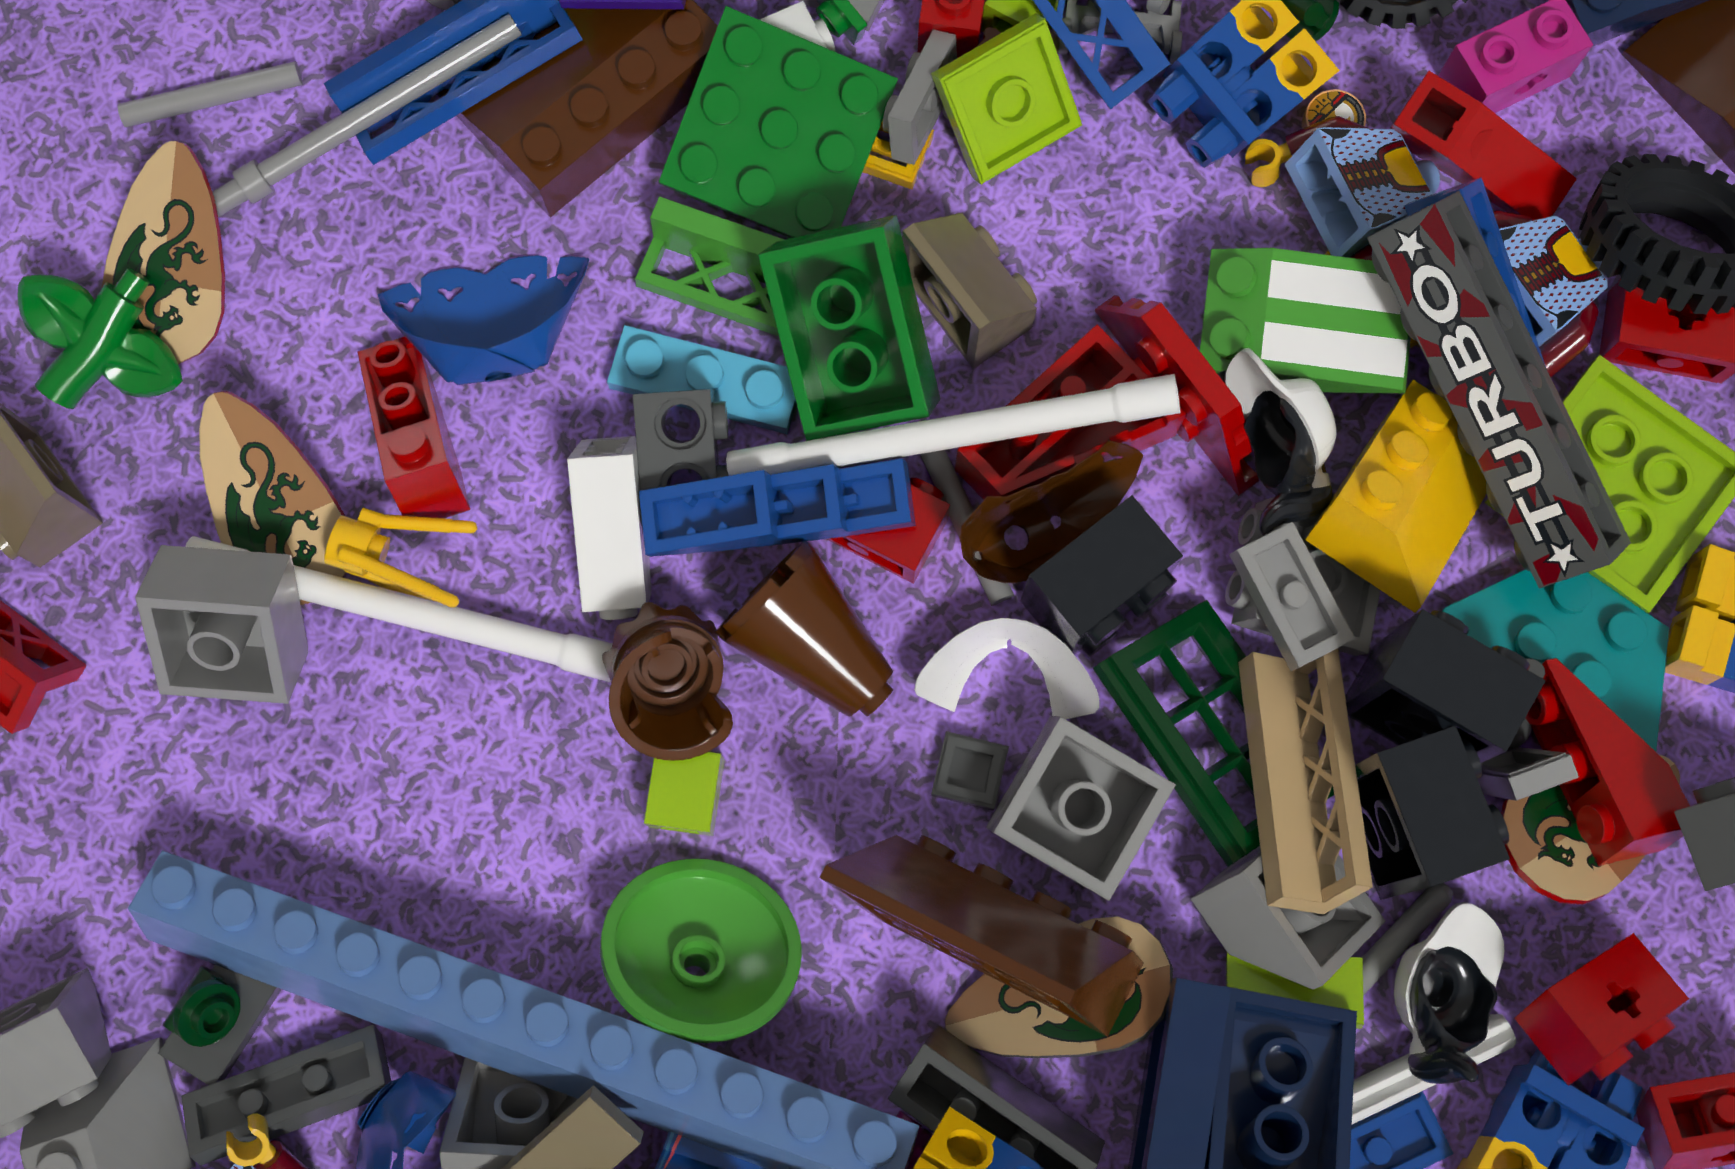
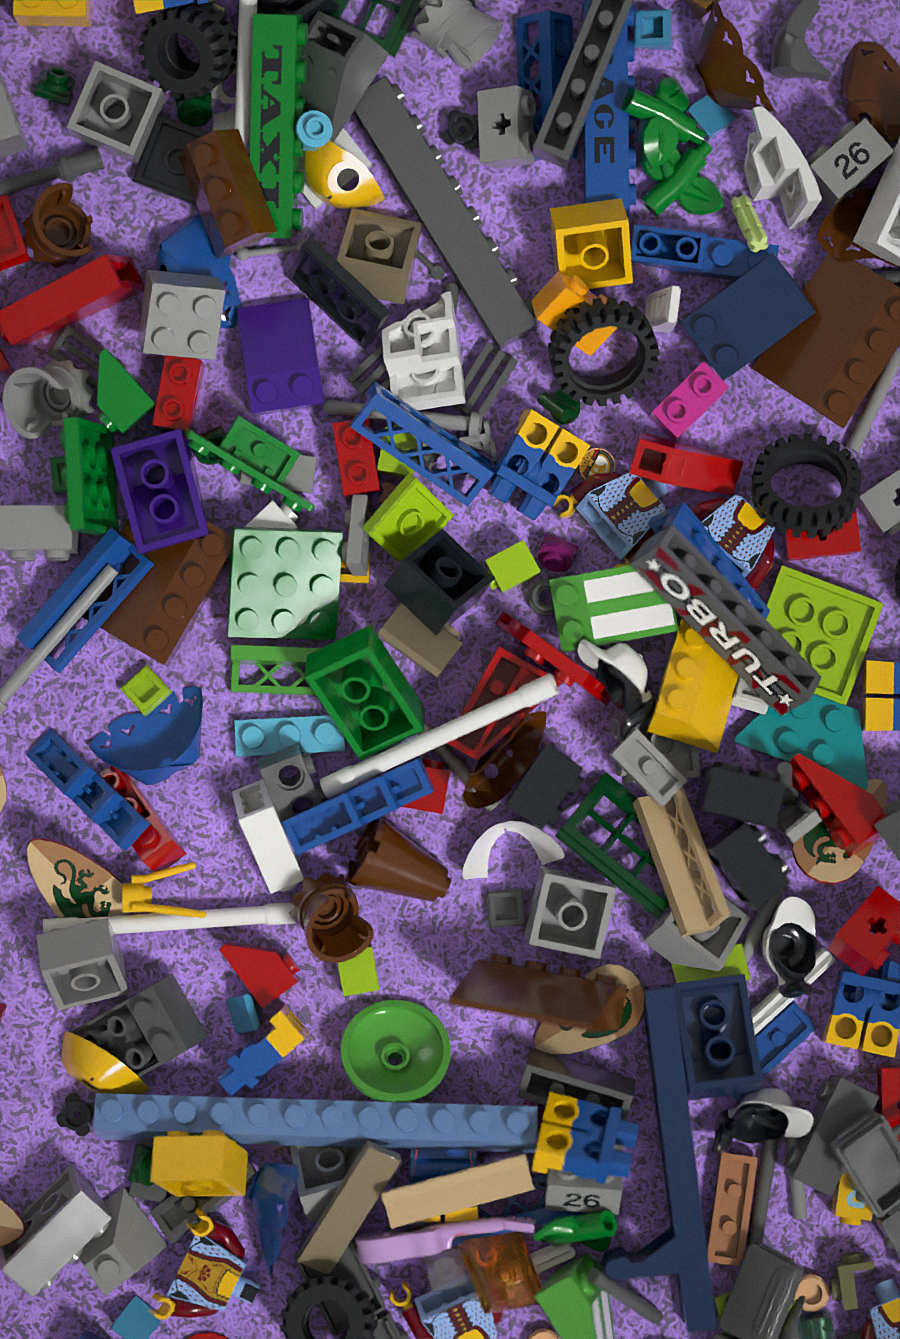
camera: 20 degrees left, 10 degrees up
(109, 880) = (67, 1118): none -> black plate
(194, 817) = (87, 1061): none -> yellow piece
(285, 779) = (147, 1027): none -> dark grey slope
(286, 1033) = (199, 1164): none -> yellow brick
(347, 353) = (88, 789): none -> blue slope
(472, 802) = (244, 1013): none -> dark azure slope
(475, 878) = (263, 1053): none -> blue hips
(501, 238) = (146, 690): none -> lime tile
(524, 740) = (262, 970): none -> red slope
(1028, 198) = (439, 582): none -> black brick
(1151, 225) = (512, 567): none -> lime brick
(1181, 276) = (533, 598): none -> dark grey plate
(1229, 227) = (557, 553): none -> magenta plate
(1489, 545) = (748, 698): none -> white tile

